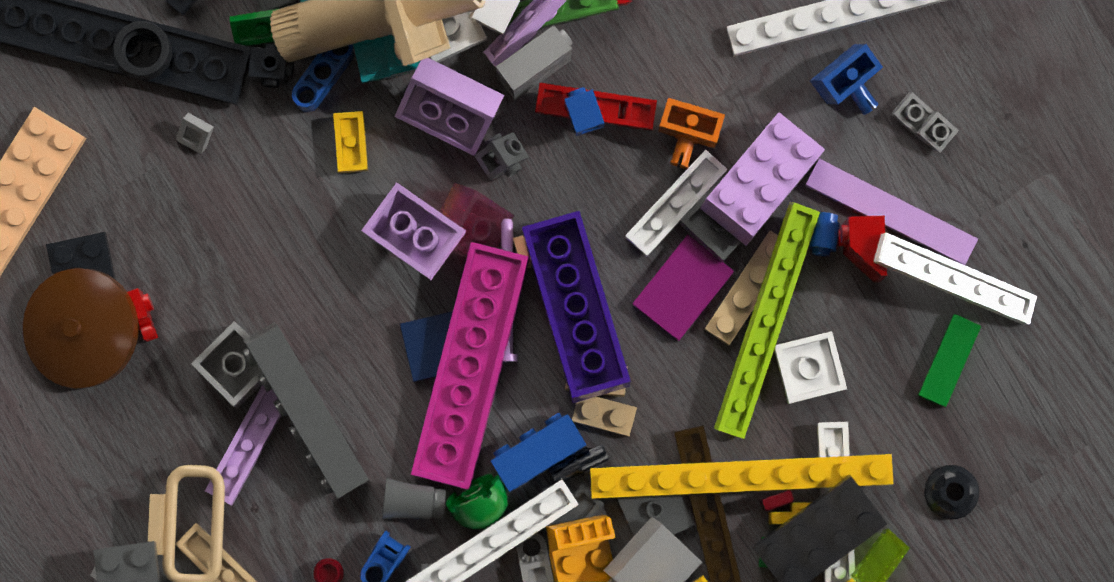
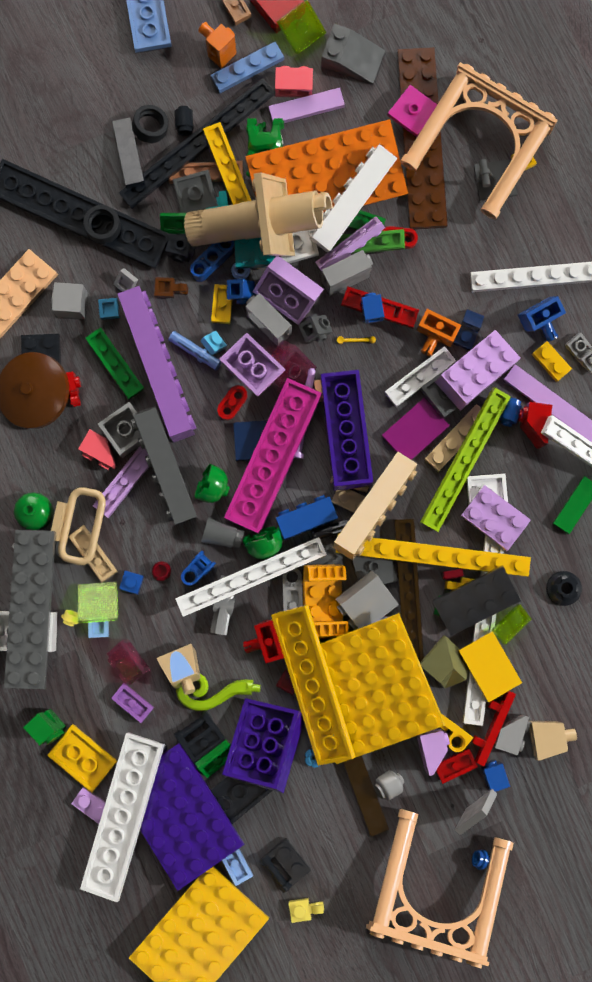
camera: 10 degrees right, 0 degrees up
(112, 178) = (69, 300): none -> light grey head
(114, 515) = (33, 511): none -> green cylinder
(175, 179) = (108, 308): none -> dark azure plate
(199, 263) = (114, 363): none -> green plate
(199, 400) = (99, 448): none -> coral slope
(259, 131) = (166, 288): none -> reddish brown plate
(263, 251) = (155, 361): none -> medium lavender brick
(332, 226) = (201, 354): none -> medium blue pin
(347, 205) = (213, 343): none -> medium azure plate
(369, 94) = (244, 275): none -> light blue plate
(376, 118) = (240, 290): none -> blue brick
(384, 427) = (212, 485): none -> green cylinder
(392, 293) = (232, 403): none -> red plate
(426, 155) = (268, 319): none -> light grey window
(543, 166) = (340, 340): none -> yellow hinge
(640, 416) = (375, 505): none -> tan brick
(739, 116) = (469, 329): none -> dark blue slope
(828, 402) = (495, 518): none -> lavender plate
(875, 144) = (551, 361): none -> yellow plate

